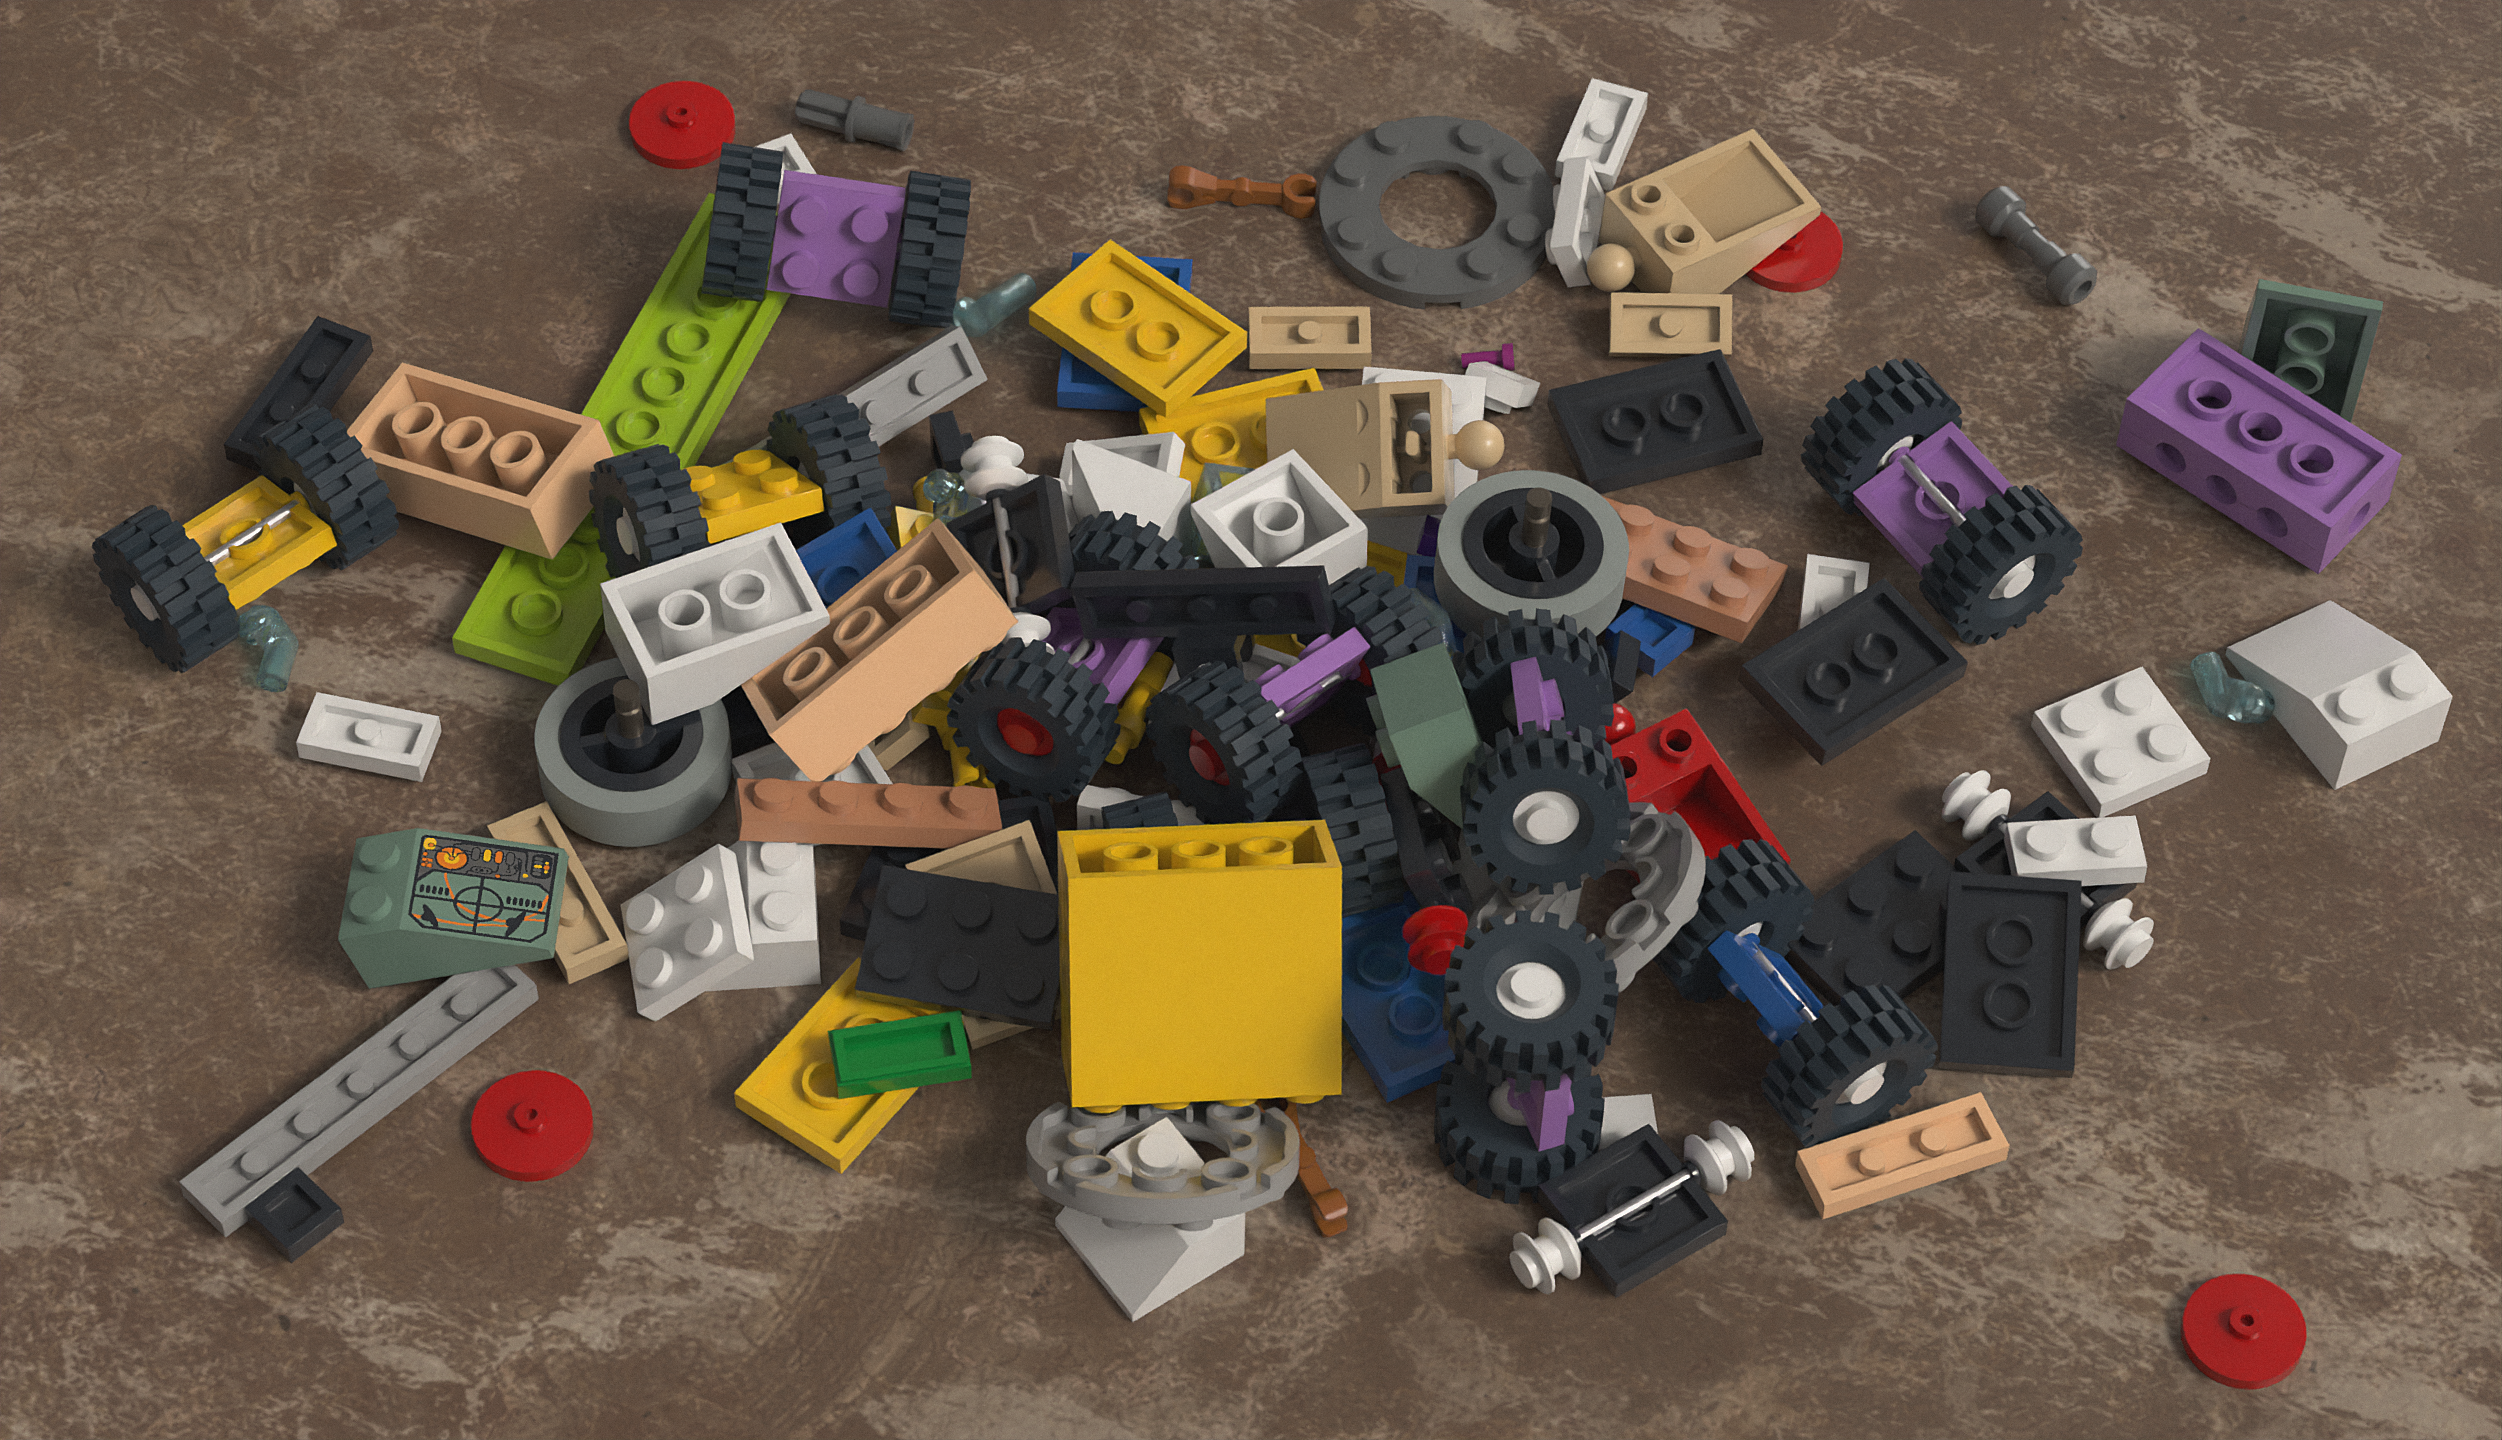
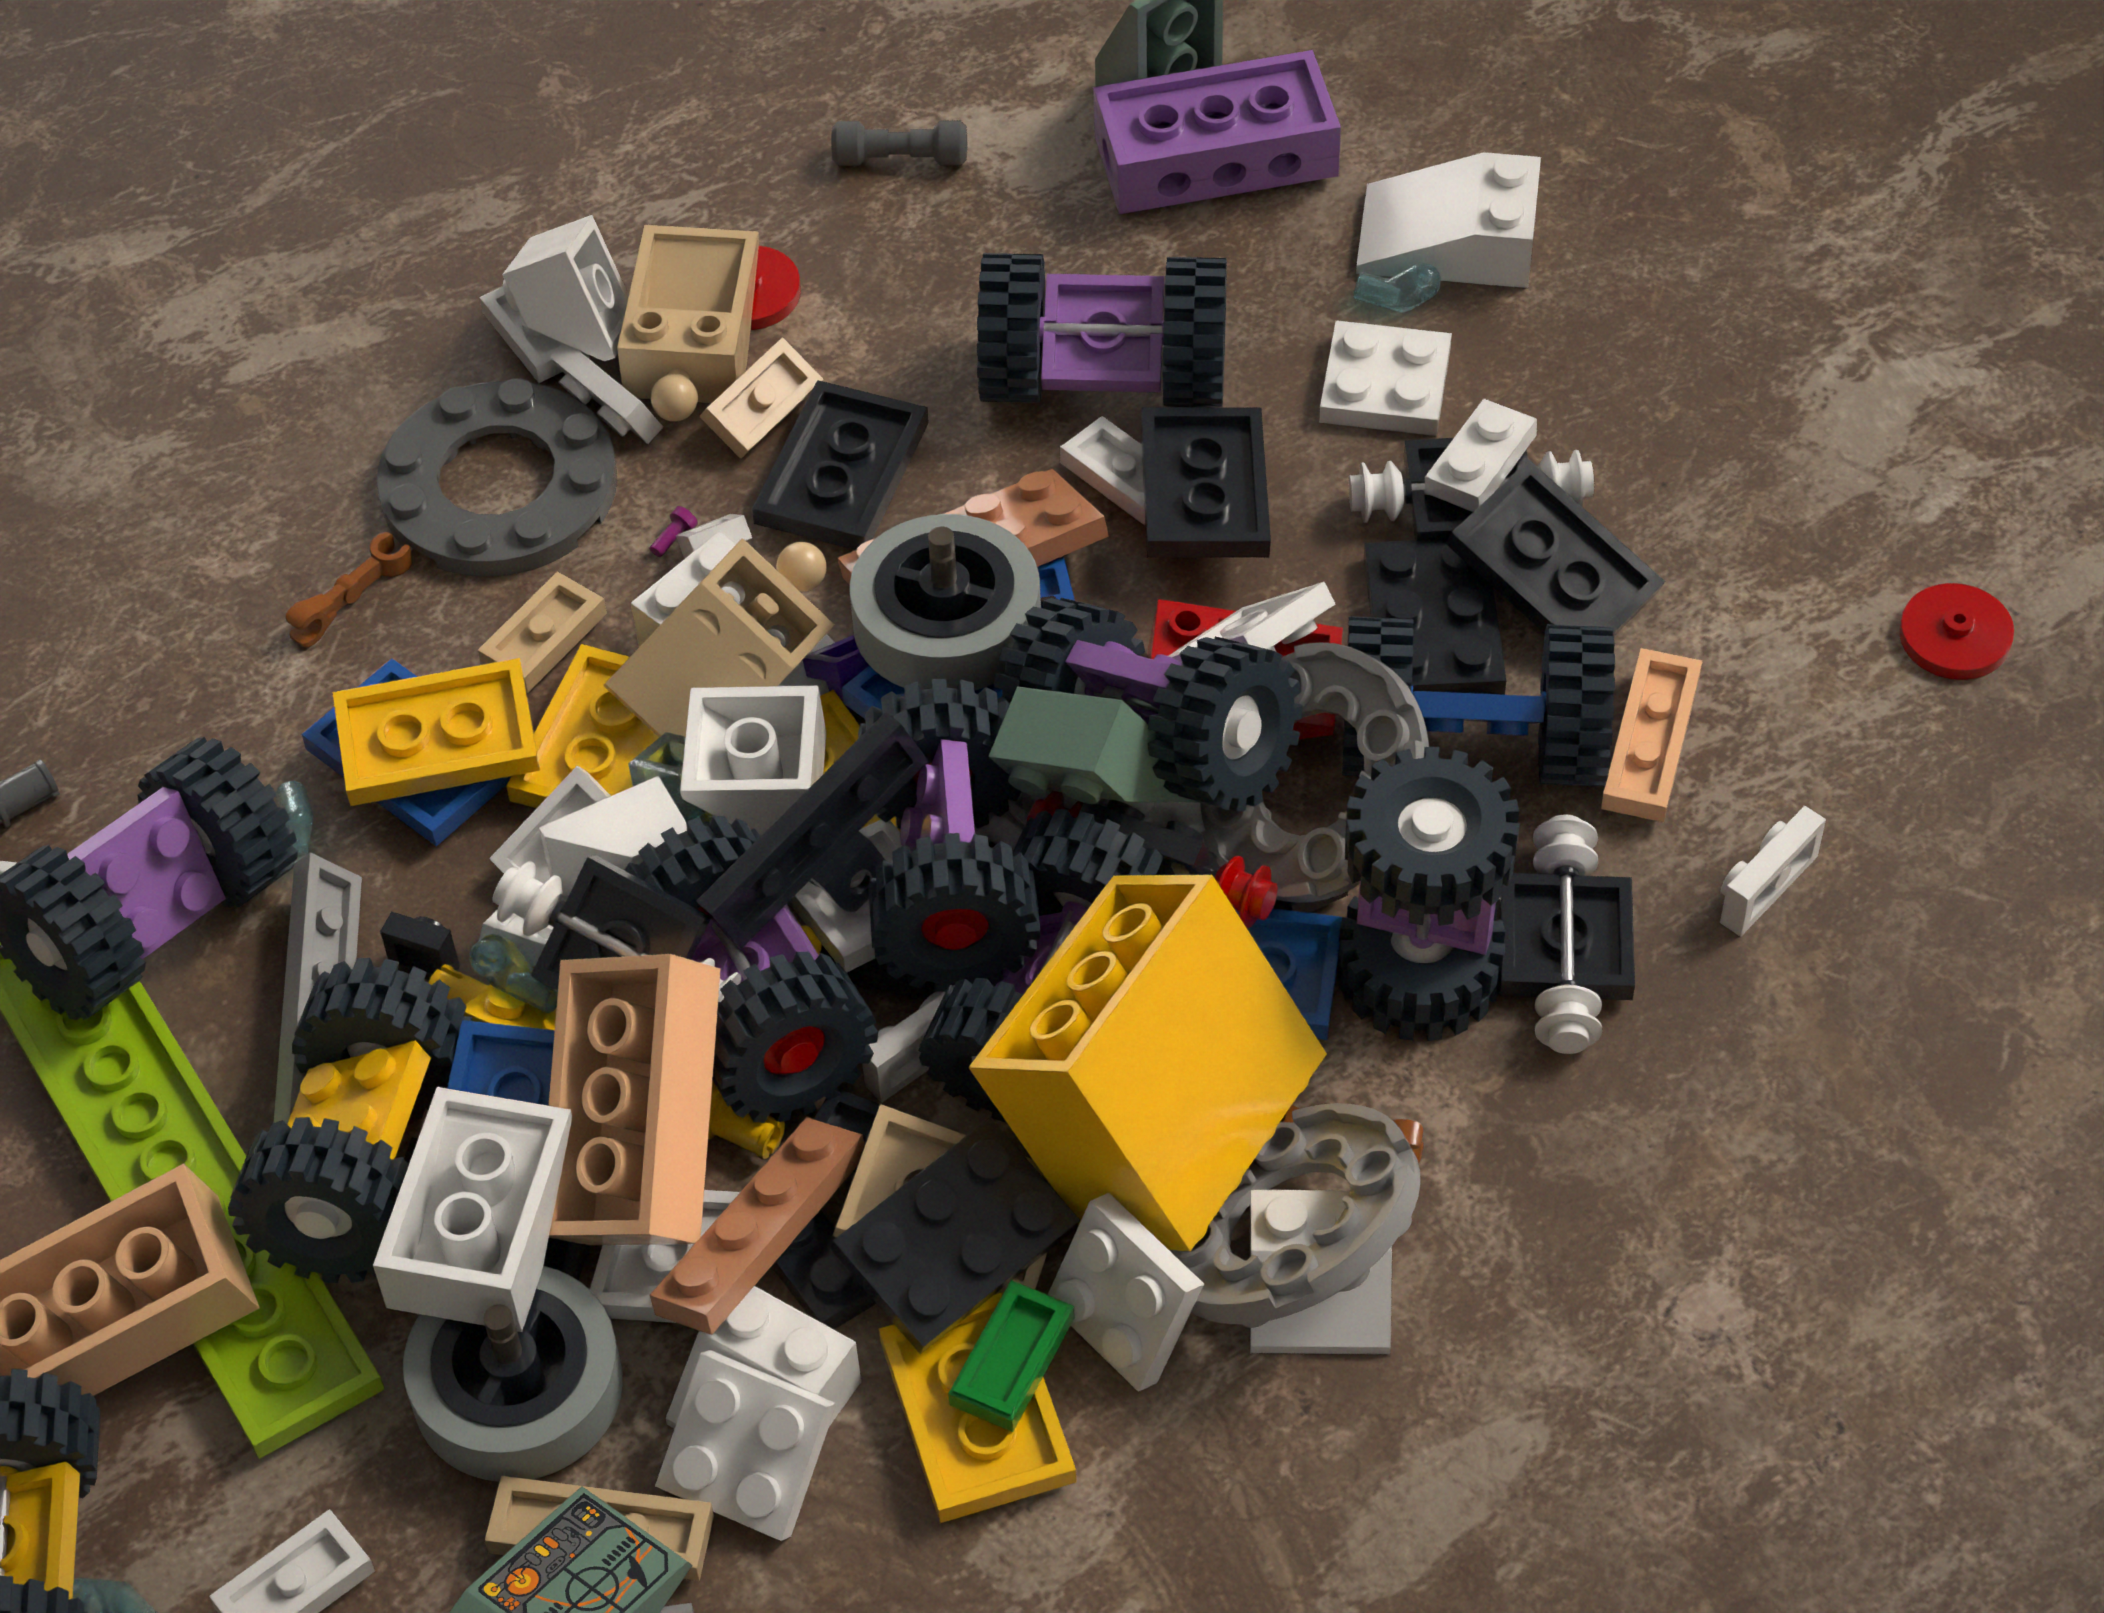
camera: 50 degrees left, 0 degrees up
(1007, 1090) = (1125, 1291): none -> white plate
(1634, 120) = (569, 288): none -> white slope
(1708, 789) = (1272, 620): none -> white plate
(1831, 1322) = (1780, 861): none -> white plate

